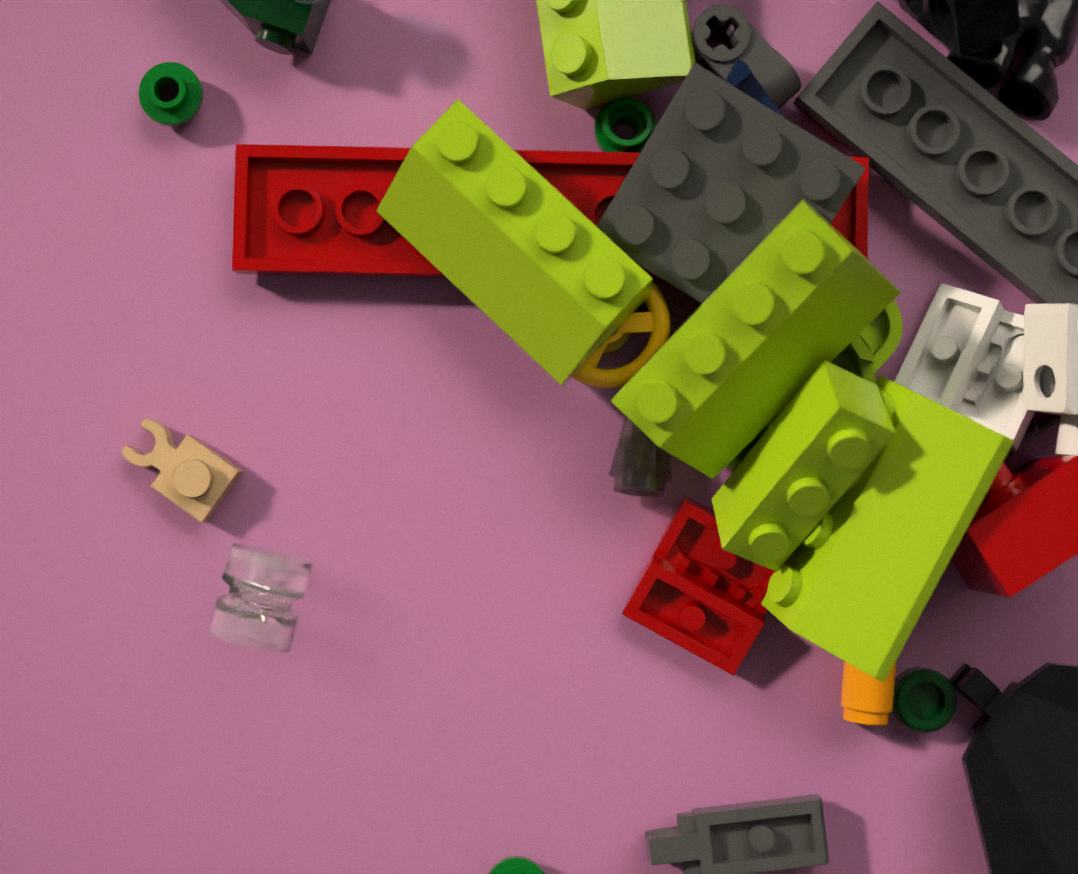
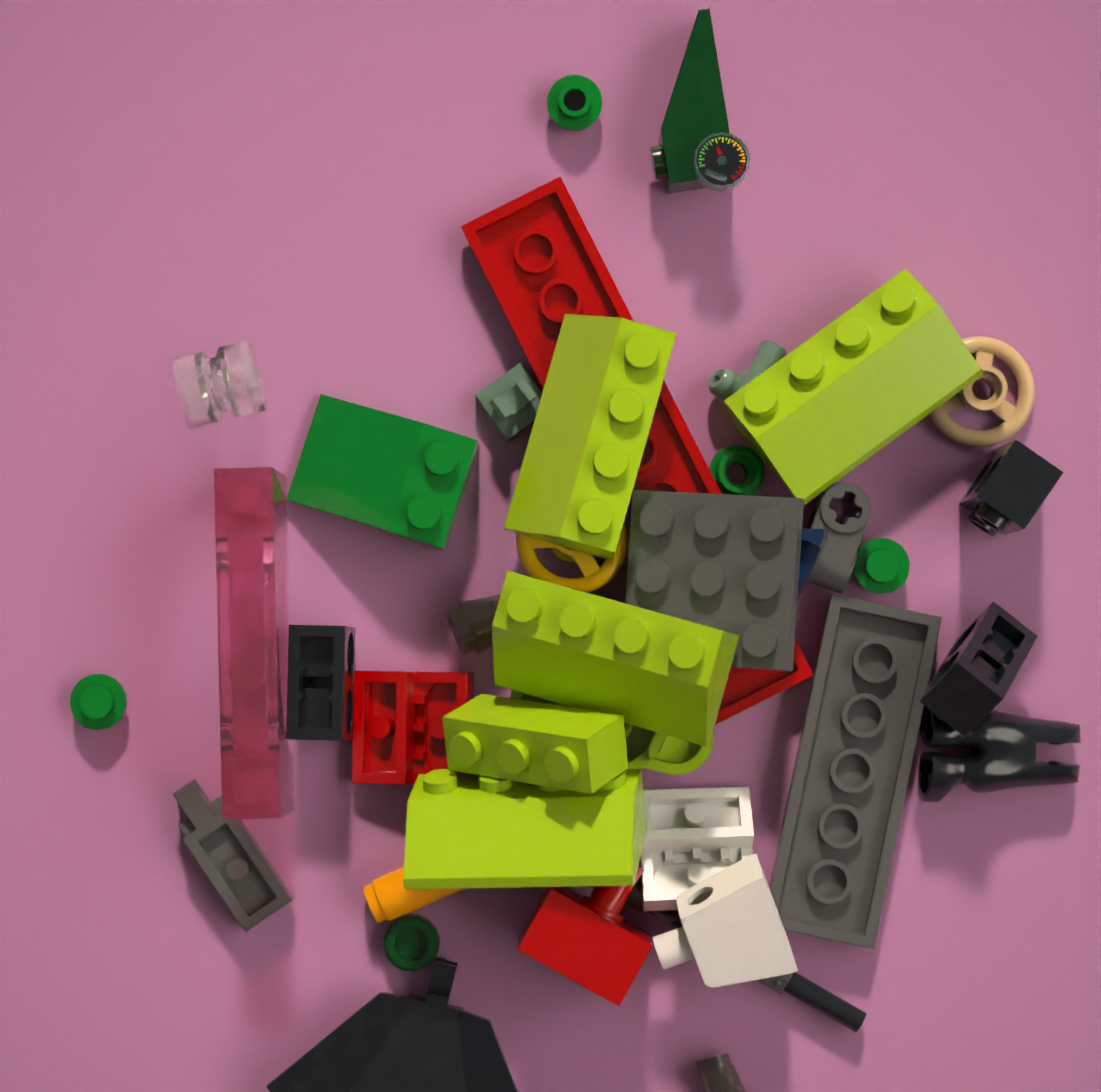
camera: 65 degrees right, 0 degrees up
(189, 474) = (285, 278): tan plate -> none
(435, 314) = (511, 401): none -> sand green tile
(436, 477) = (383, 471): none -> green slope
(533, 89) = (725, 382): none -> sand green arm
(620, 656) = (320, 682): none -> black brick
(633, 752) = (253, 740): none -> clear pink arch
(795, 34) = (881, 566): none -> green plate

